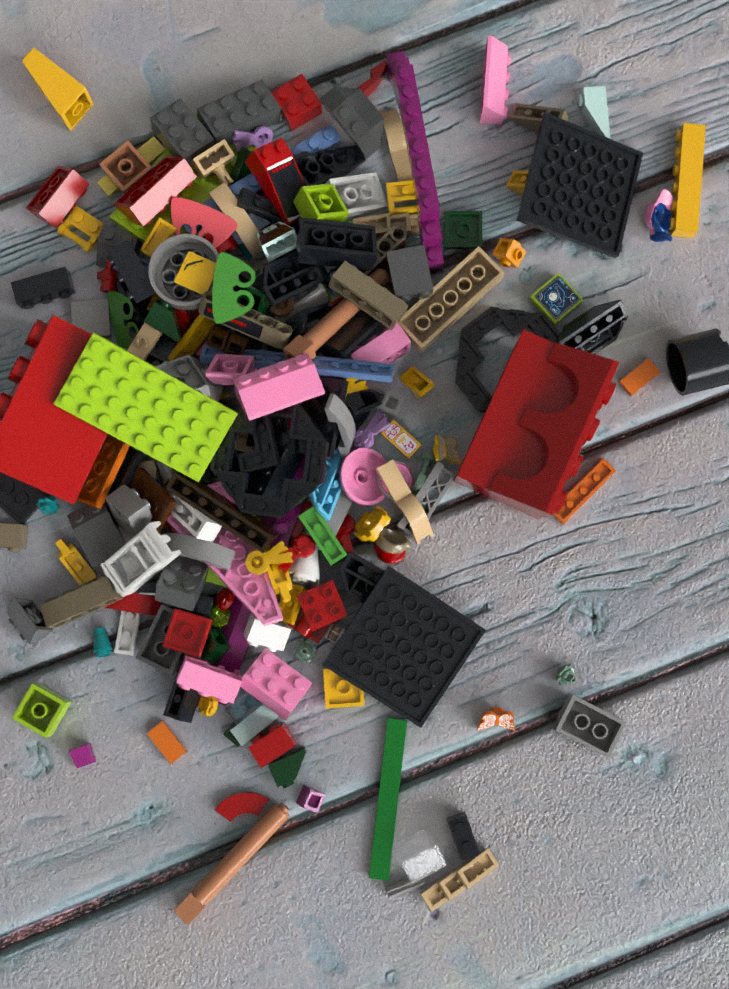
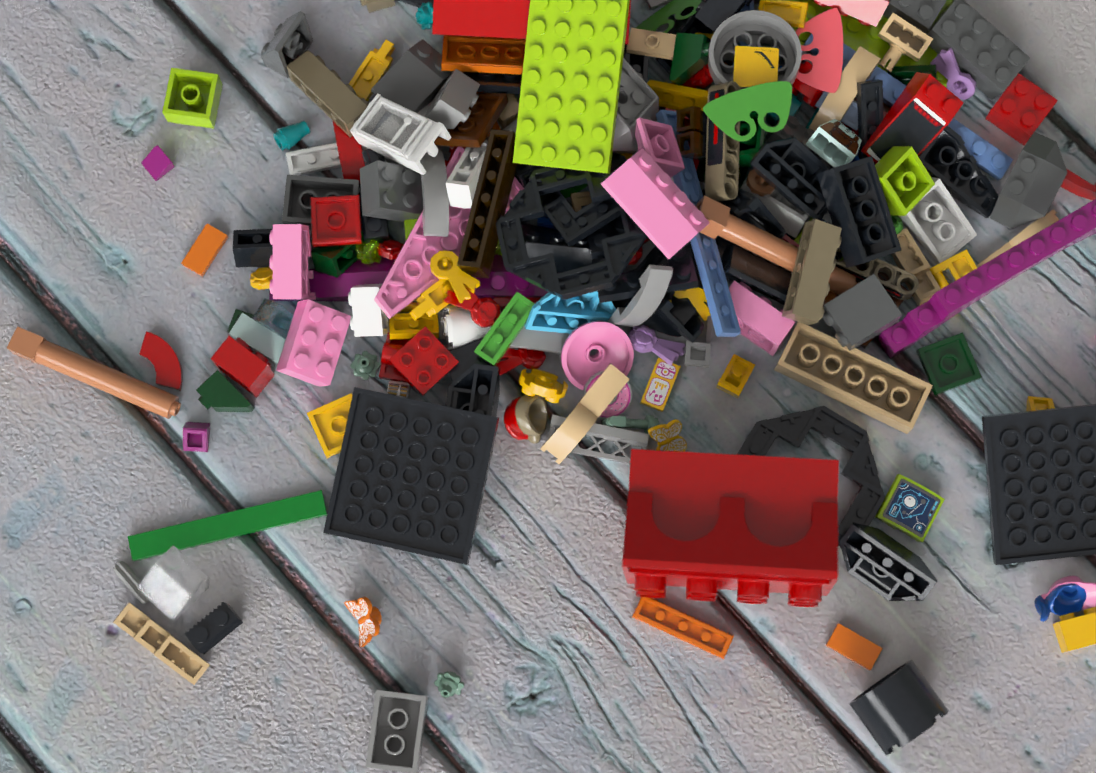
camera: 70 degrees right, 5 degrees down
(509, 252) = (942, 428): light orange brick -> none

